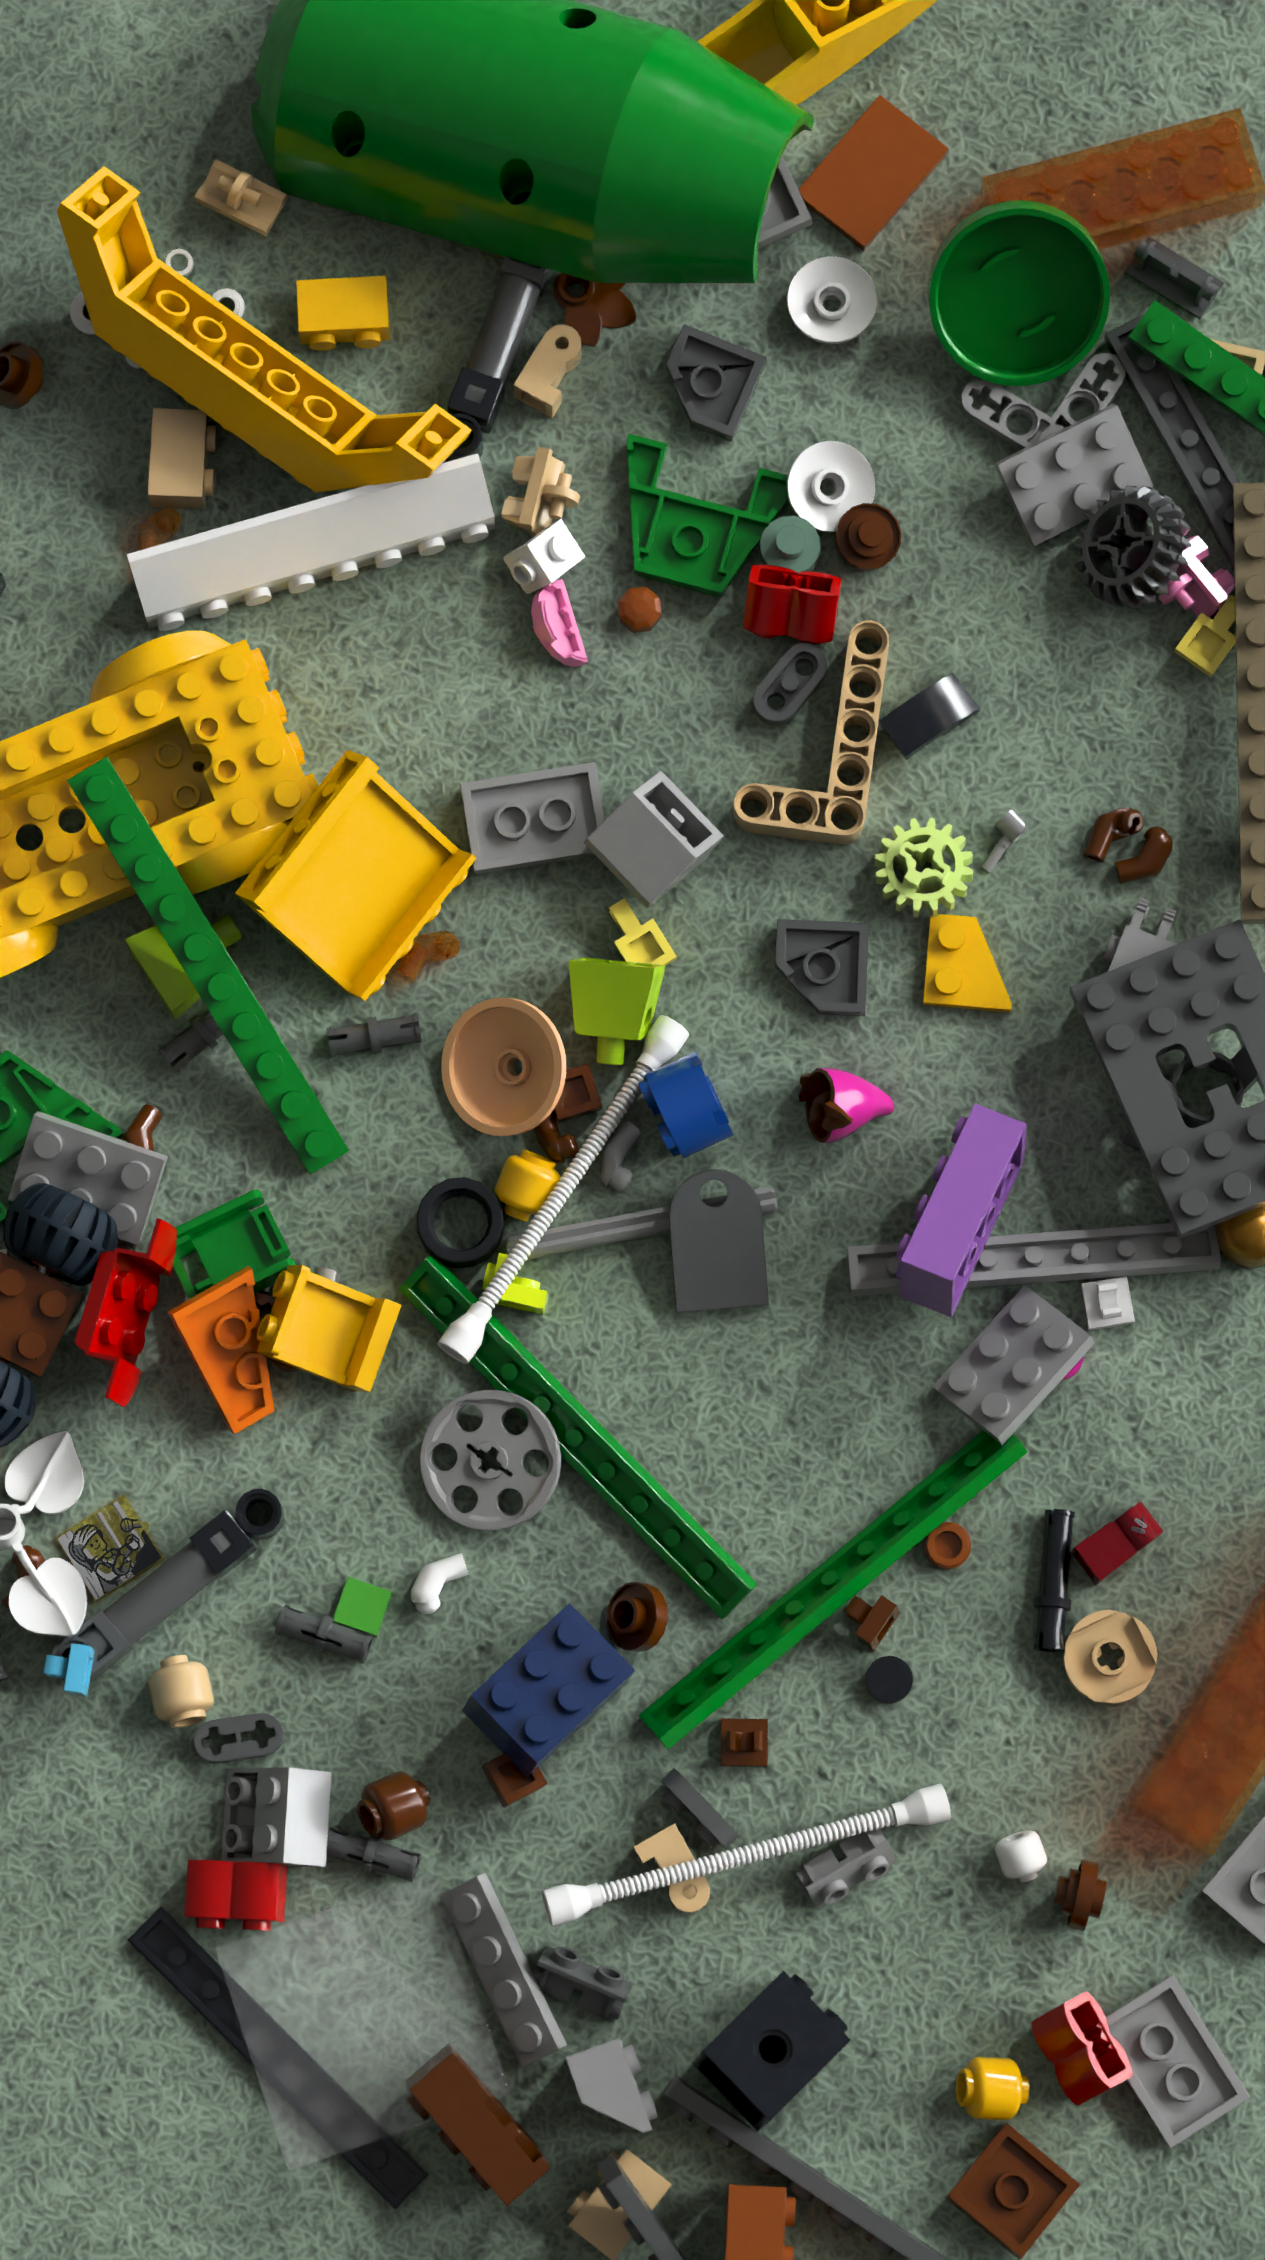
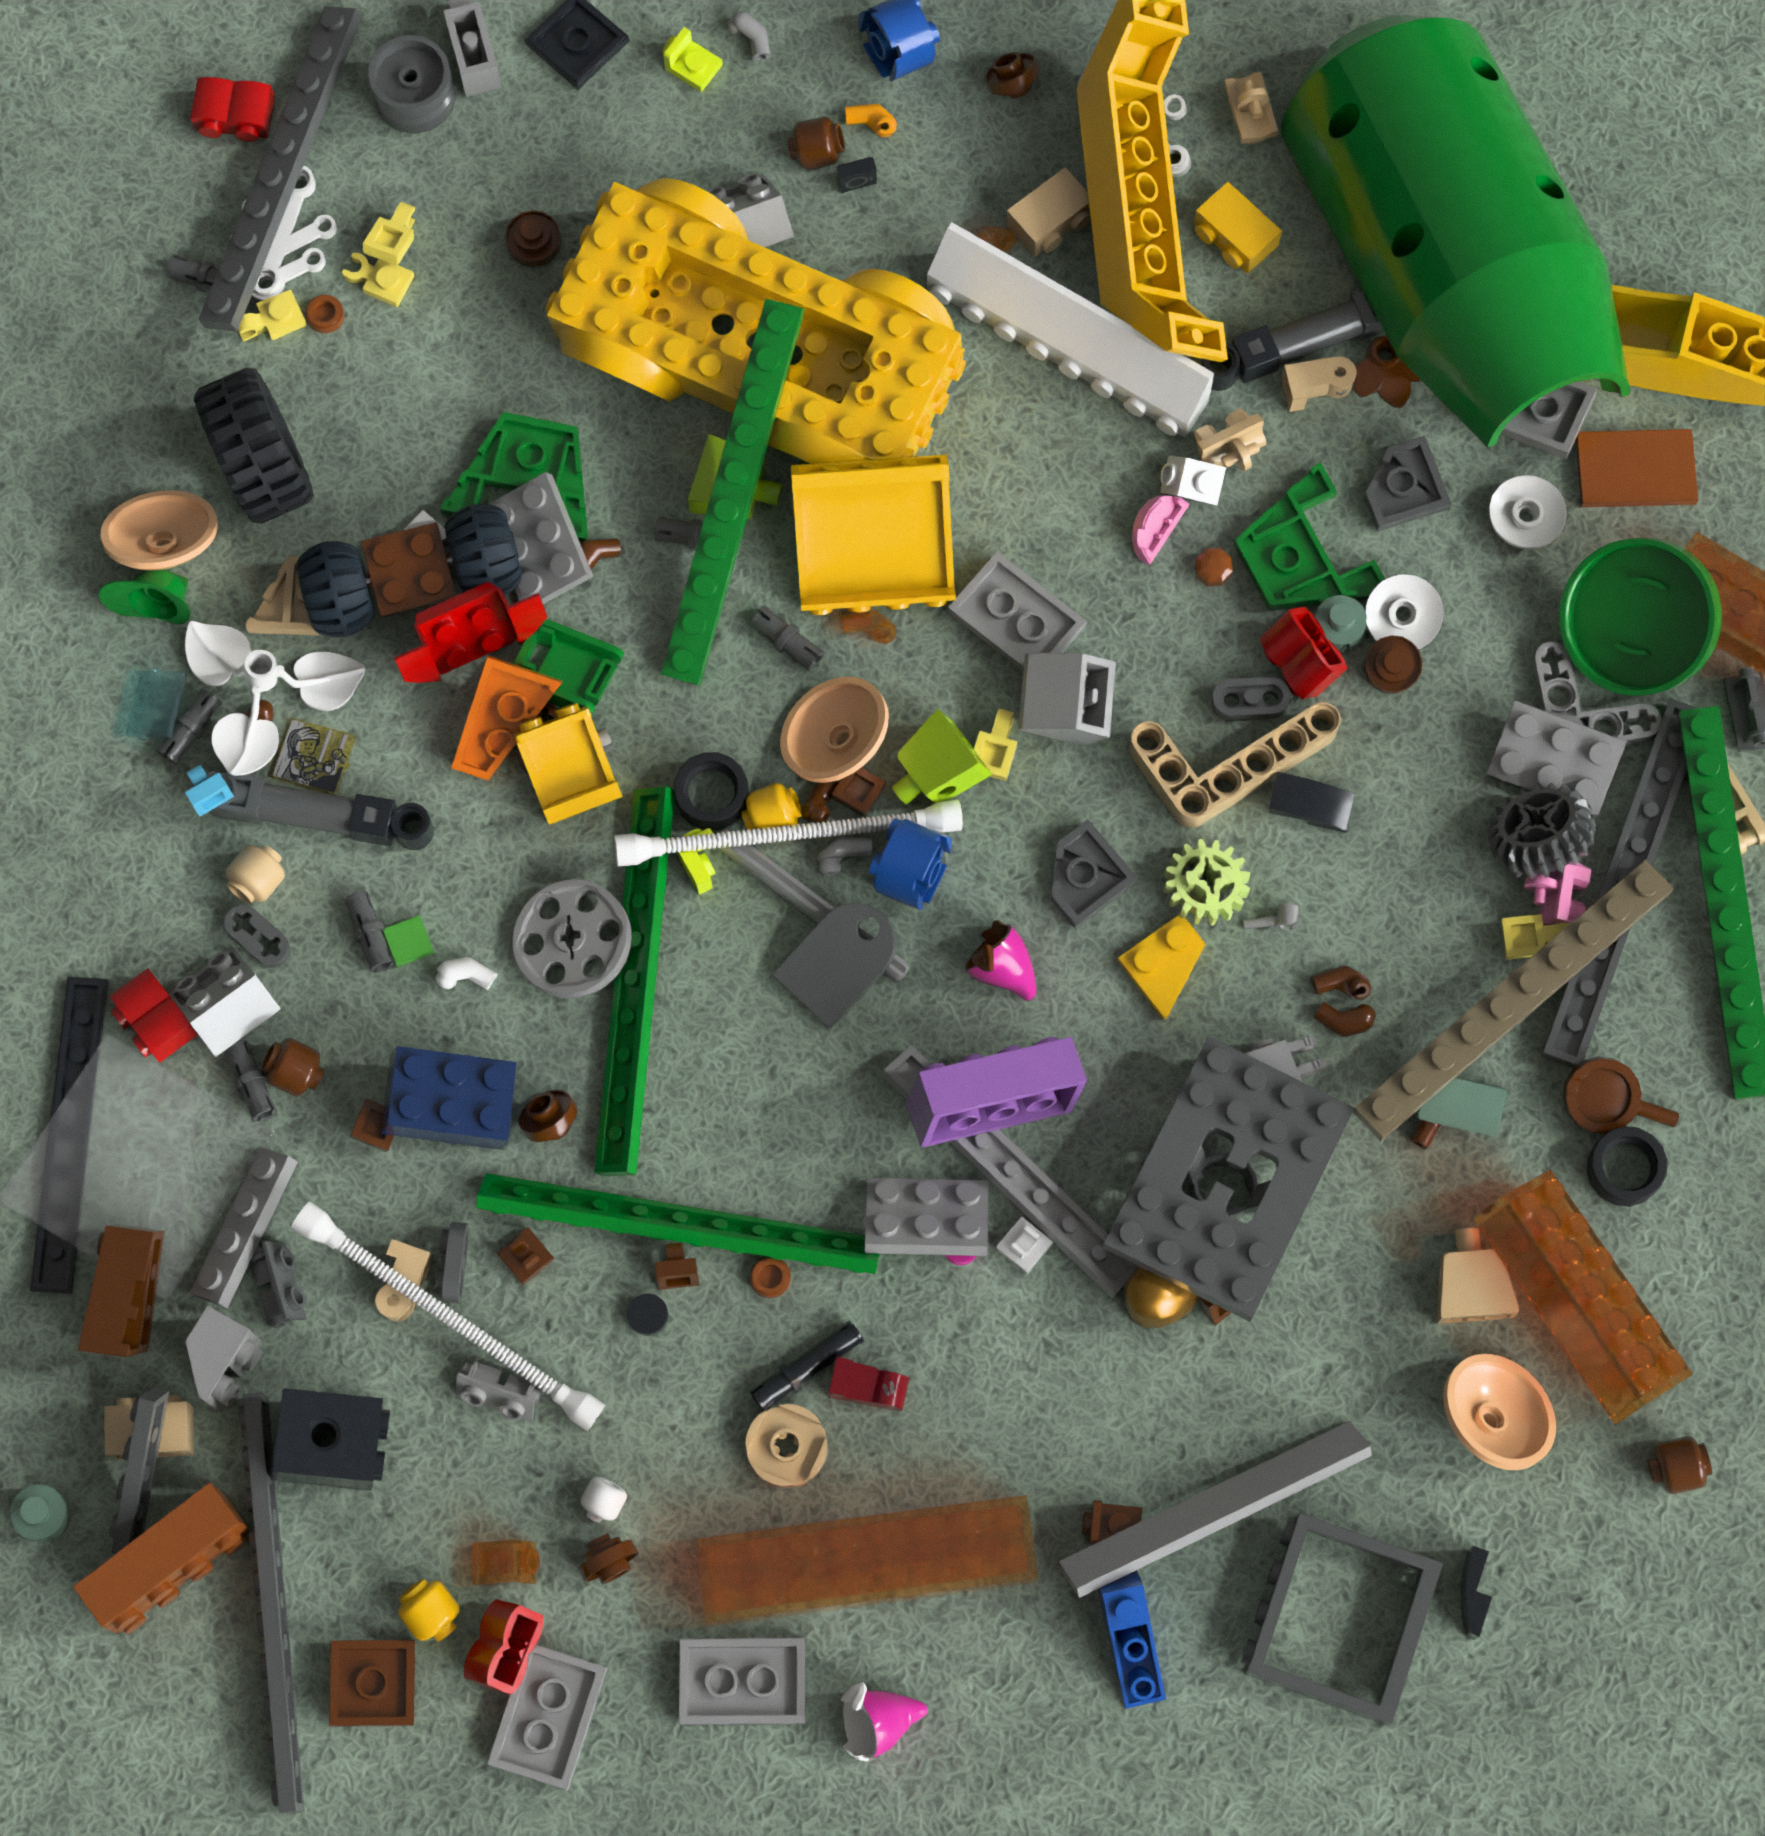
camera: 50 degrees right, 5 degrees down
(1005, 1987) = (504, 1562): none -> clear orange bracket

